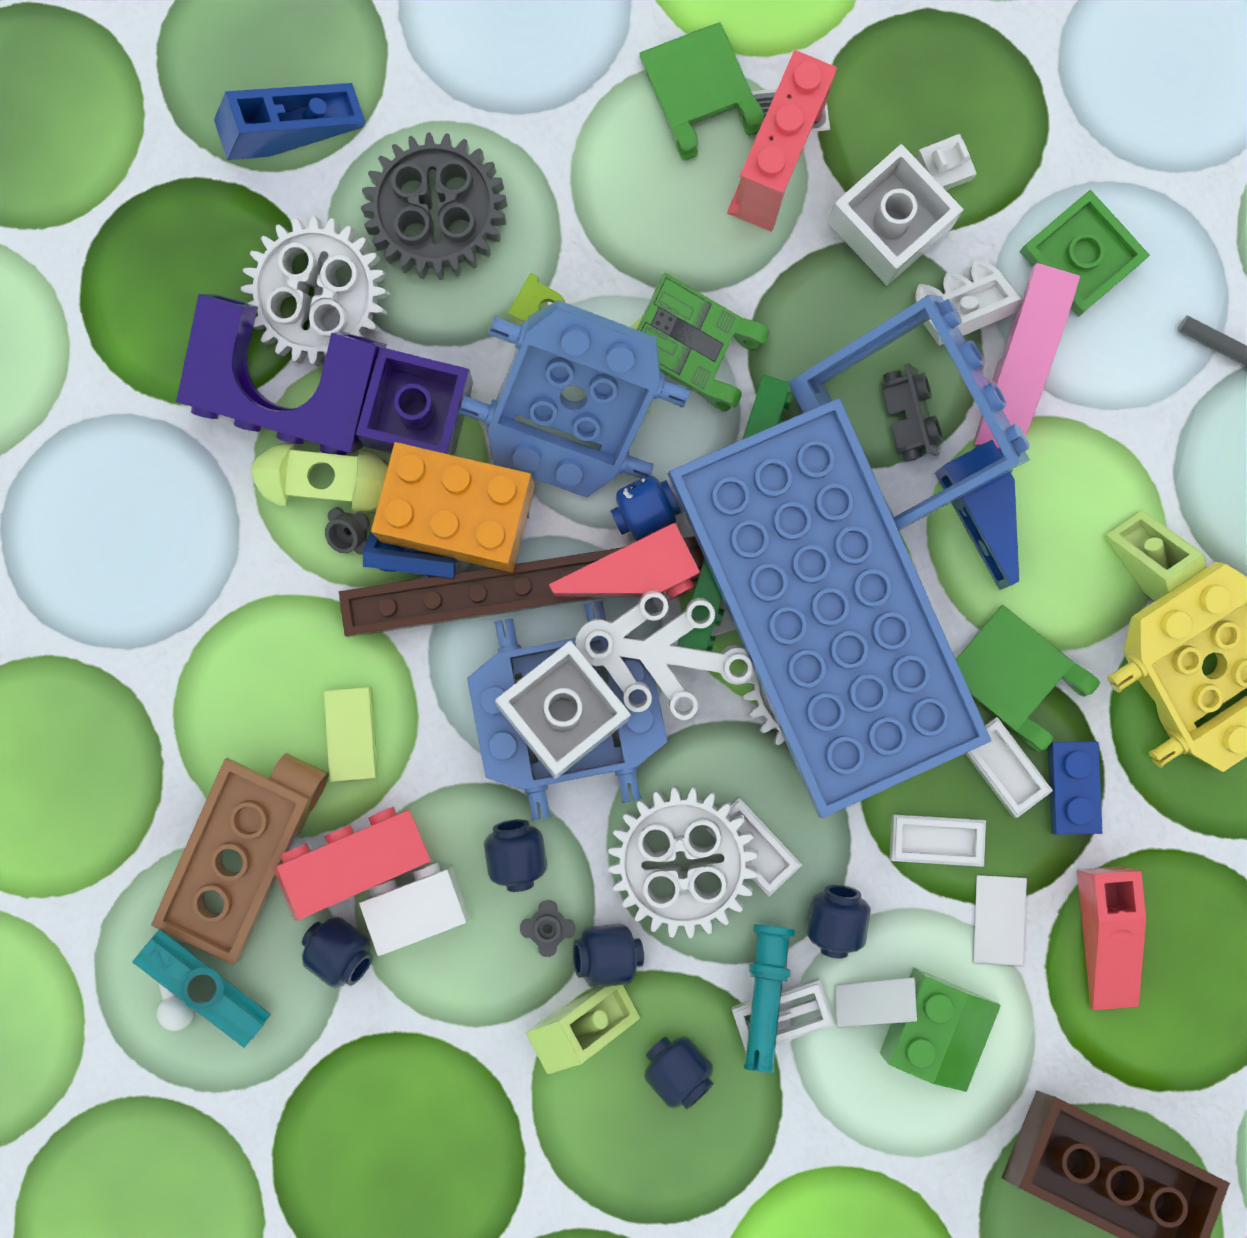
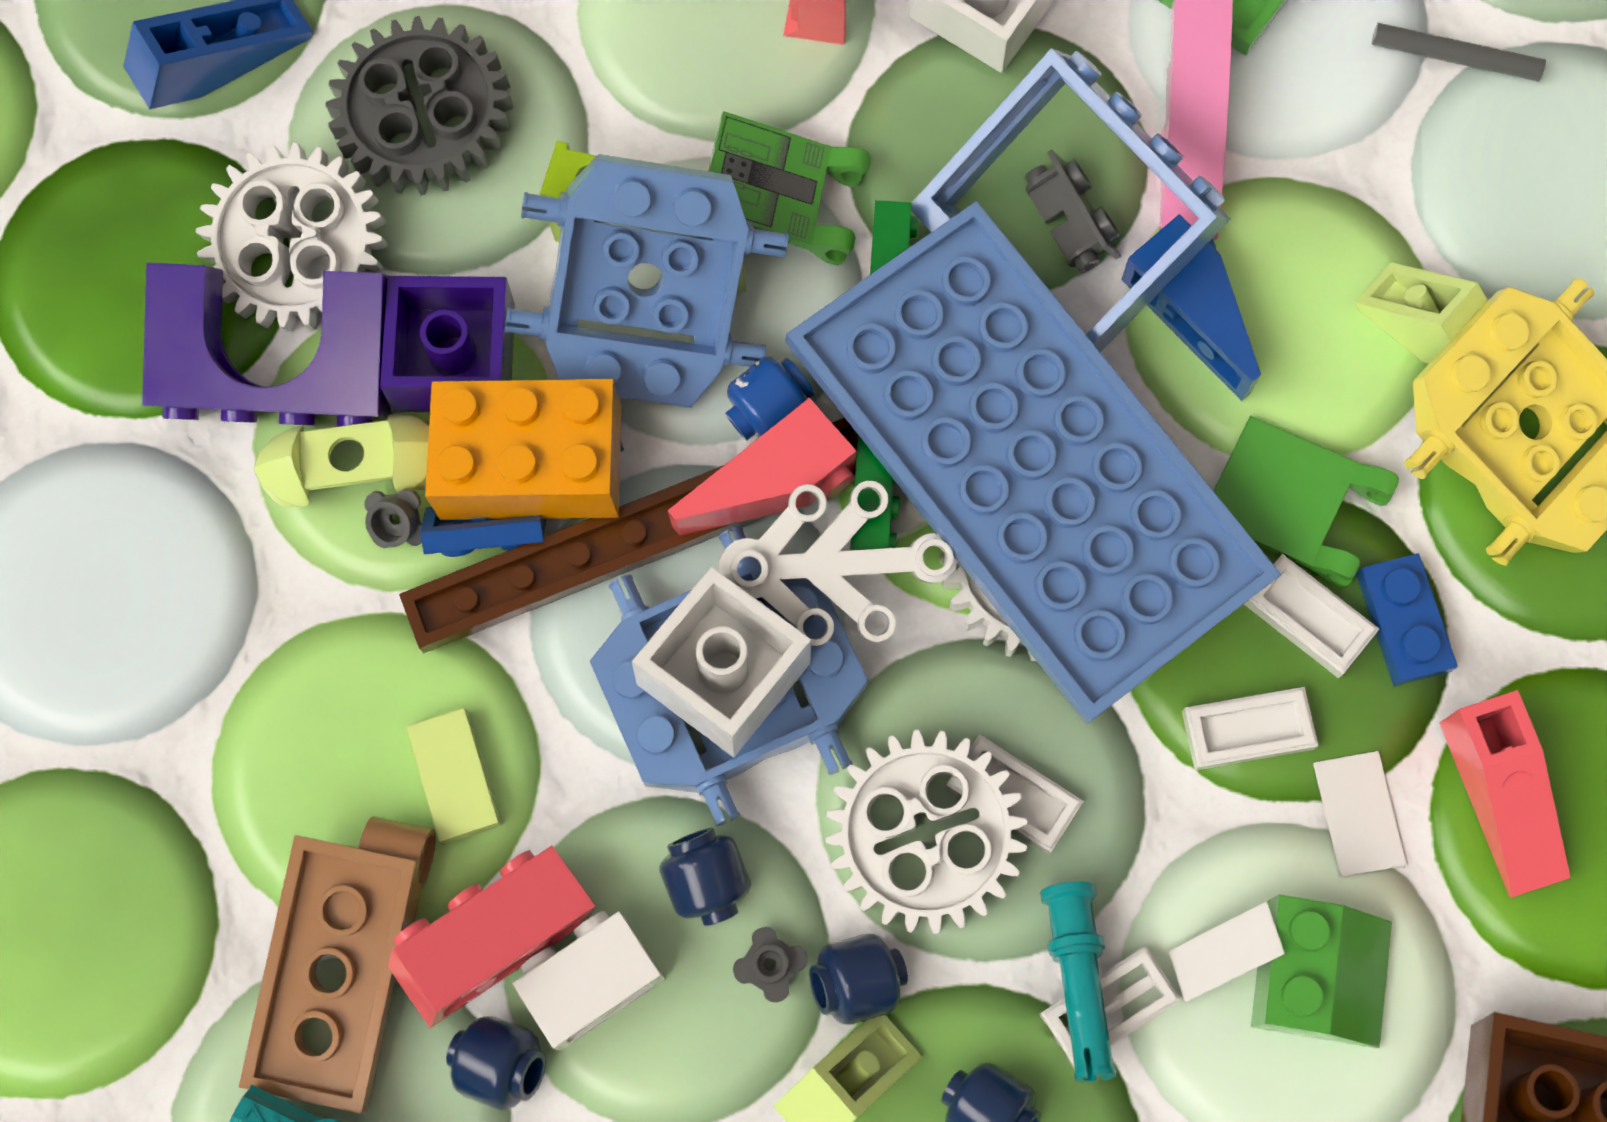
camera: 10 degrees left, 10 degrees down
(838, 921) = (1149, 860): dark blue head -> none
(978, 302) = (1125, 61): white plate -> none

